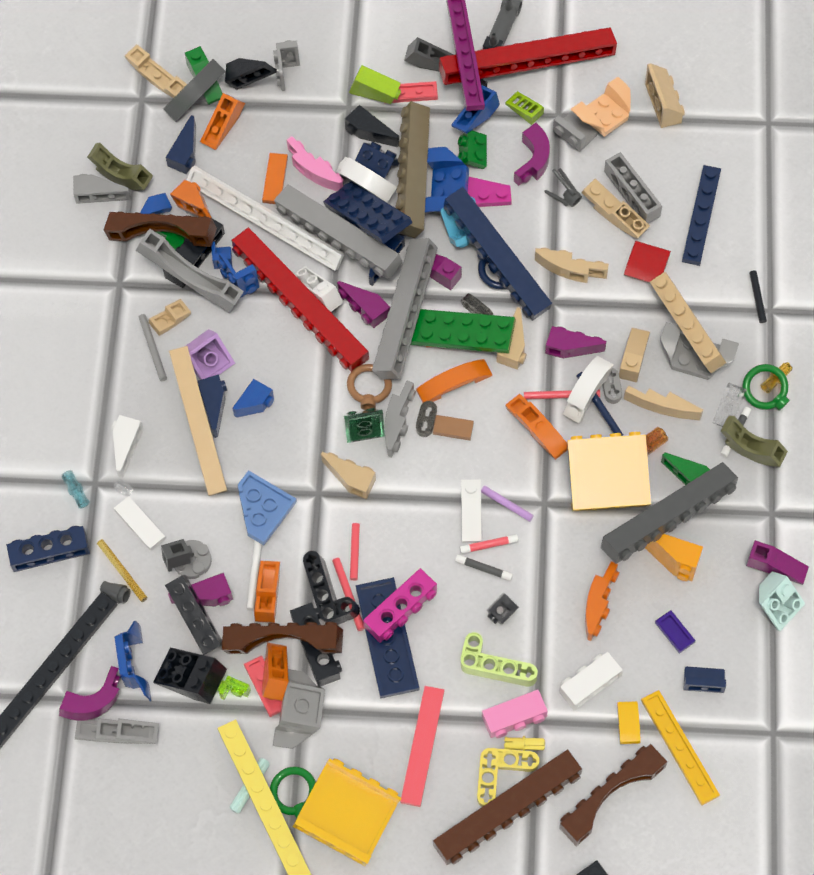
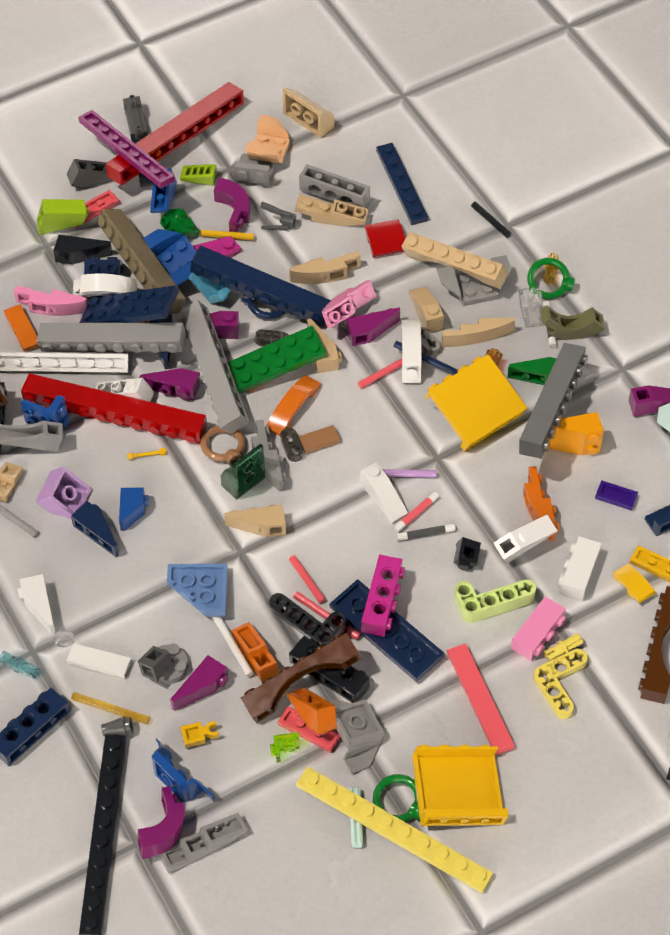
camera: 35 degrees left, 10 degrees down
(171, 634) = (195, 734): none -> yellow plate
(190, 674) = (236, 756): black slope -> none
(194, 614) = (208, 701): black brick -> none
(198, 421) = (95, 546): tan tile -> none
(215, 255) = (15, 412): blue panel -> none
(315, 362) = (162, 451): none -> yellow hinge
(506, 180) = (222, 234): none -> yellow bar
(507, 807) = (587, 705): reddish brown brick -> none
(537, 425) = (394, 399): orange slope -> none
(558, 626) = (525, 538): none -> white slope
(562, 310) = (347, 302): none -> bright pink slope

